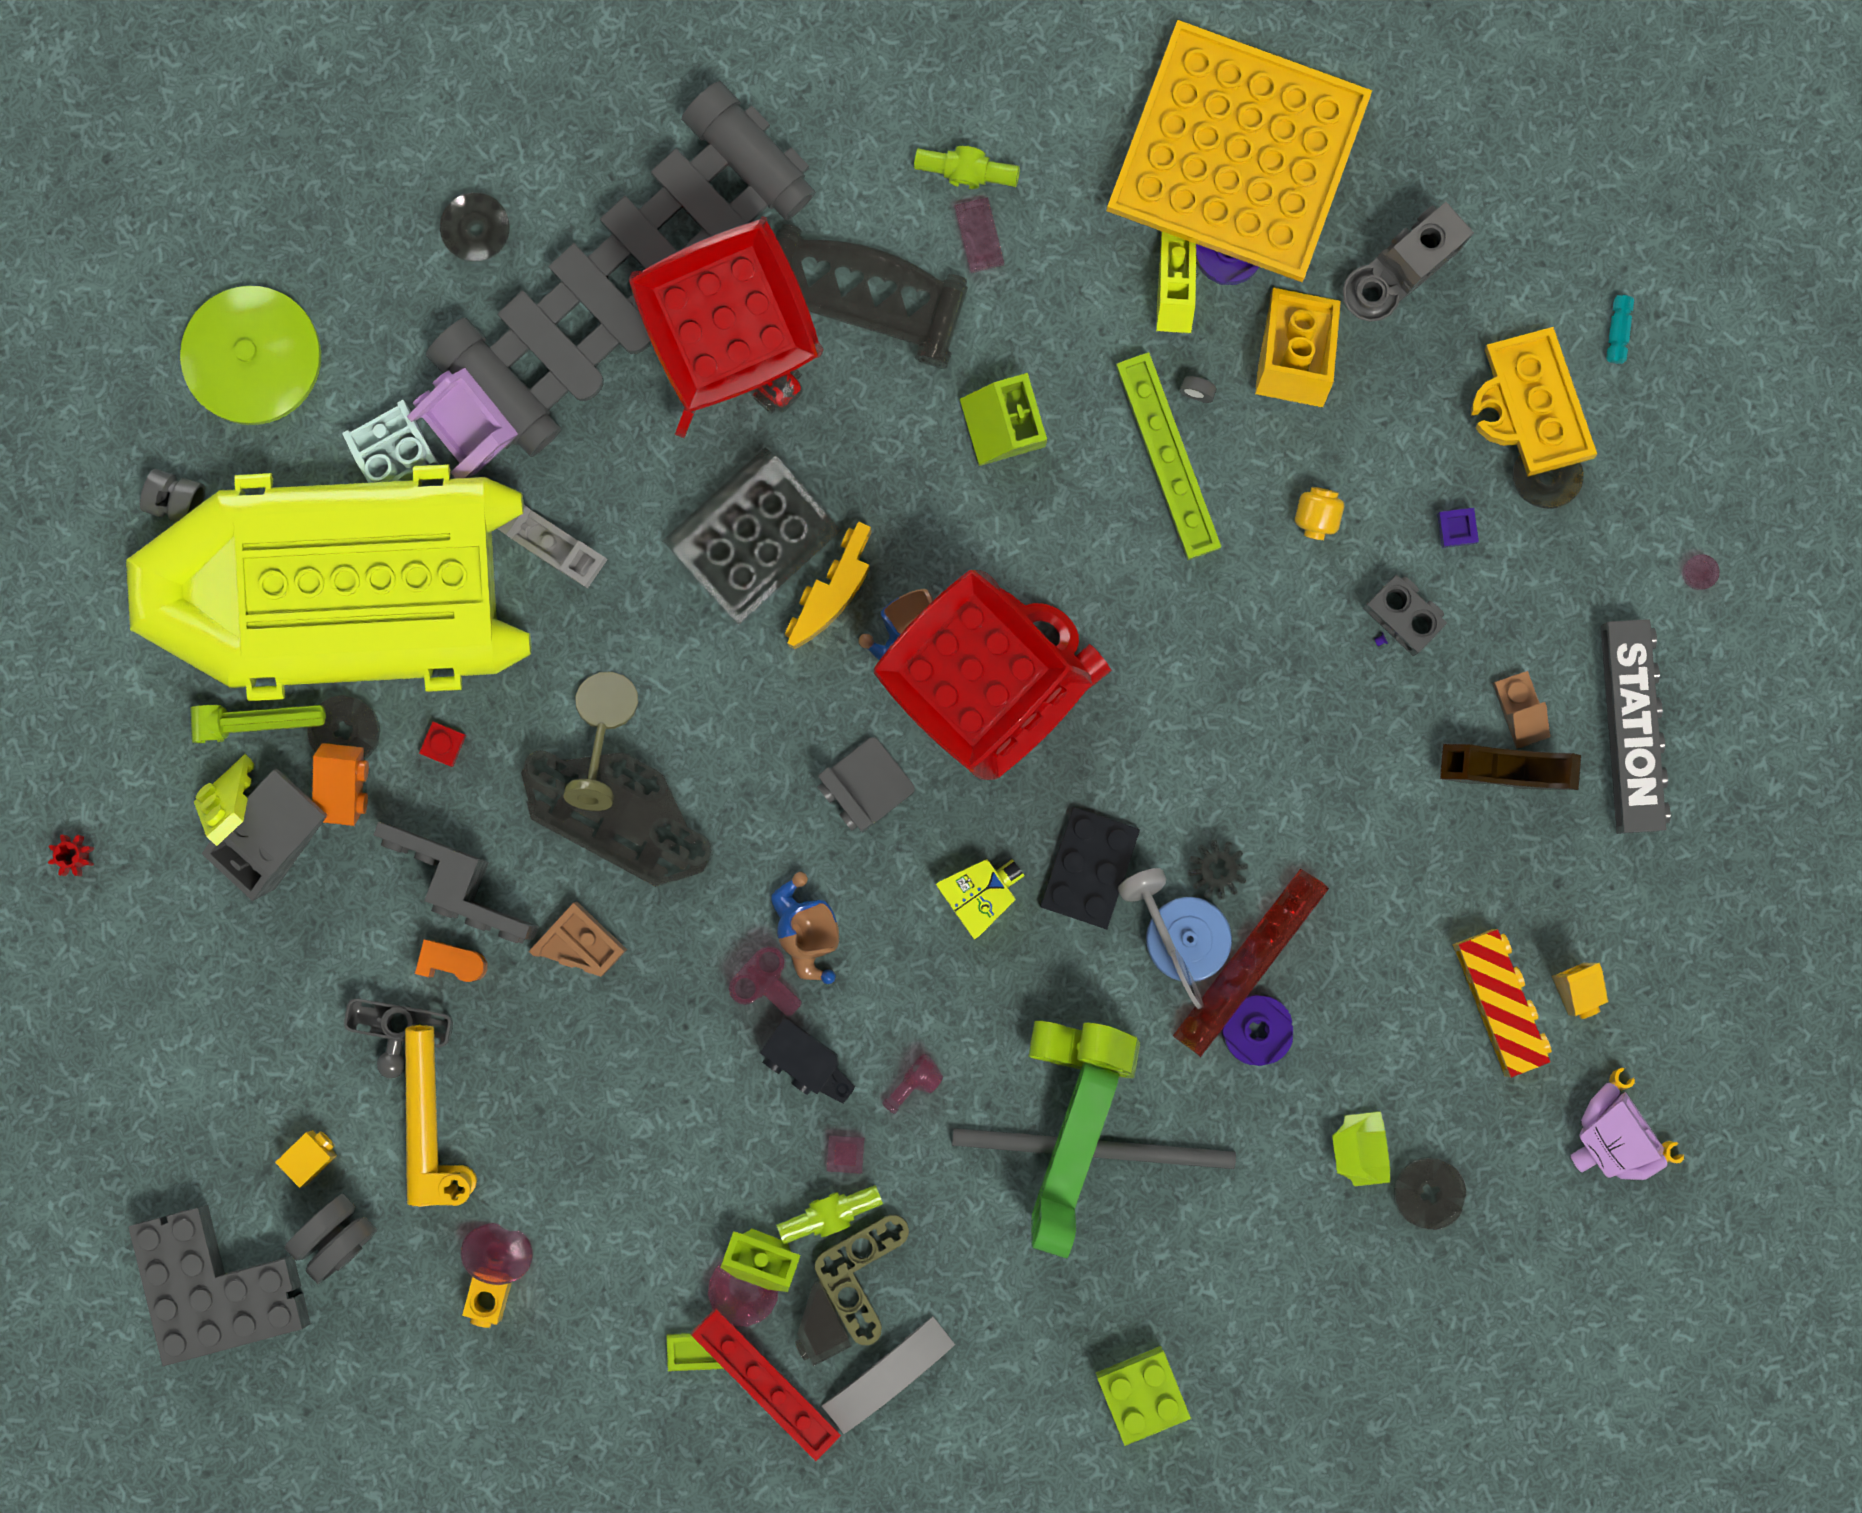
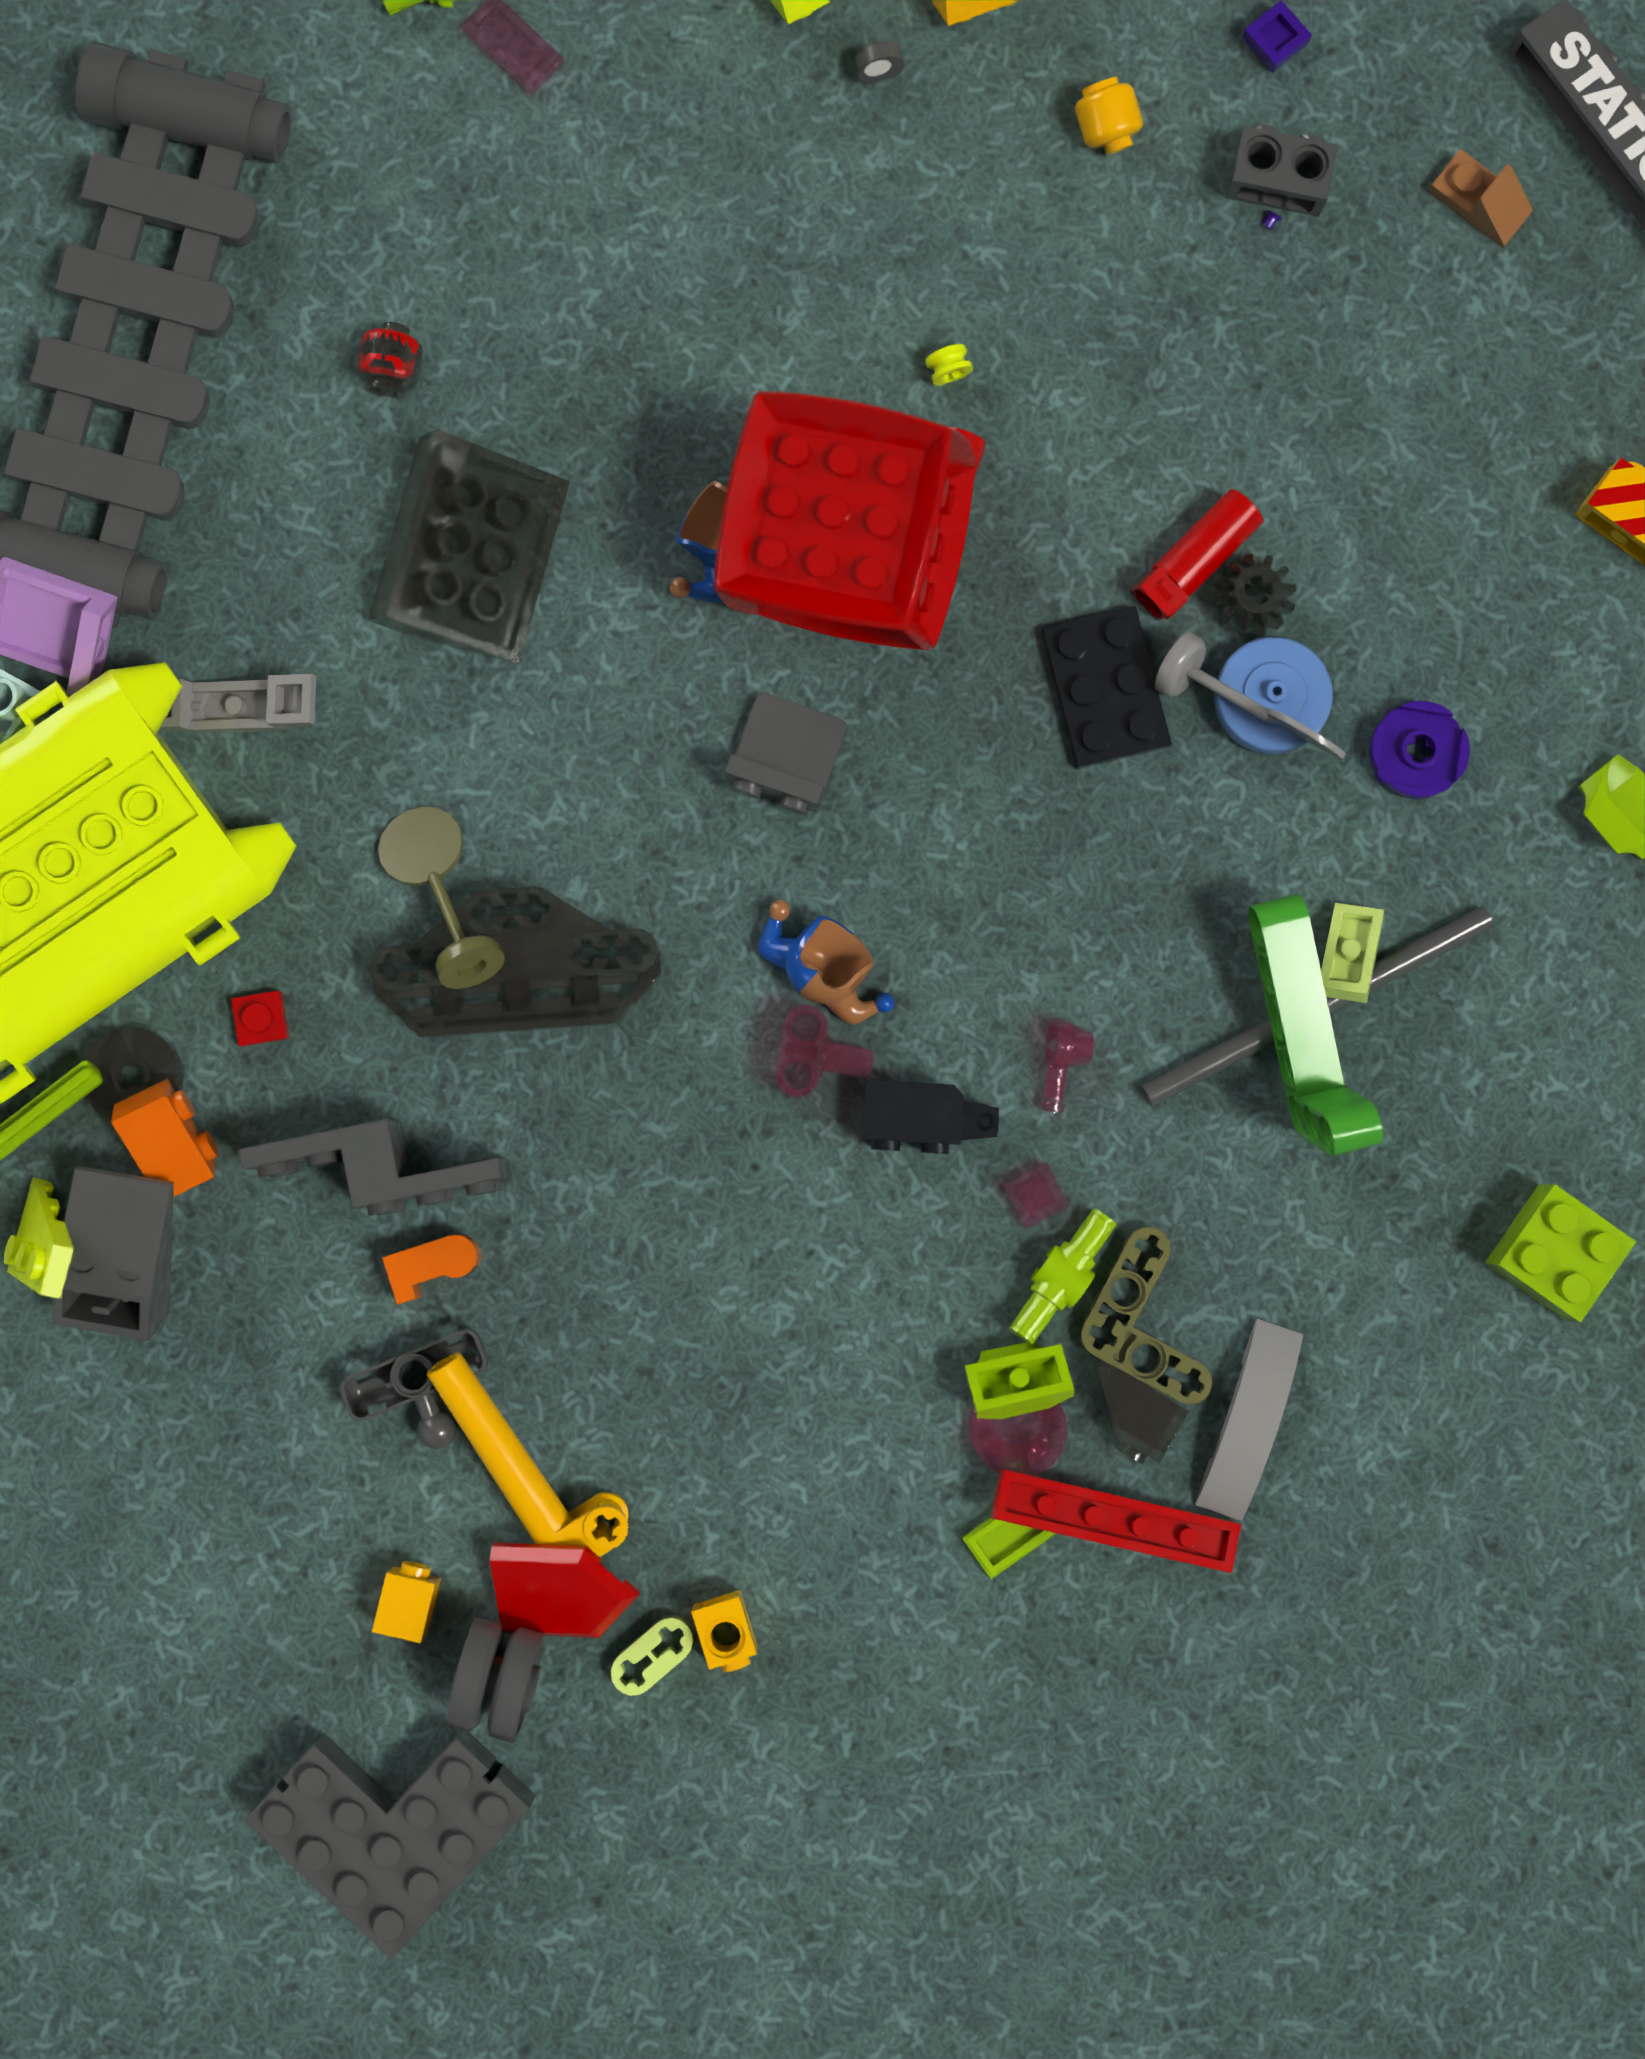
camera: 35 degrees left, 0 degrees up
(401, 1208) = (556, 1589): none -> red tile
(435, 1293) = (660, 1664): none -> yellowish green beam
(495, 1242) = (691, 1560): clear pink dish -> none
(580, 942) = (568, 1146): medium nougat wing -> none
(725, 316) = (270, 285): red piece -> none
(826, 602) = (603, 568): yellow slope -> none
(928, 327) = (521, 184): clear smoke piece -> none
(980, 893) = (1000, 795): neon yellow torso -> none
(1004, 420) = (678, 231): lime slope -> none
(1093, 1044) = (1259, 873): lime connector -> none
(1120, 606) = (949, 364): none -> neon yellow bush
(1133, 1129) = (1351, 952): none -> yellowish green plate
(1168, 456) = (893, 160): lime plate -> none
(1198, 822) = (1198, 554): none -> red piece
(1251, 962) = (1361, 676): clear red plate -> none
(1510, 767) = (1517, 266): dark brown arch -> none

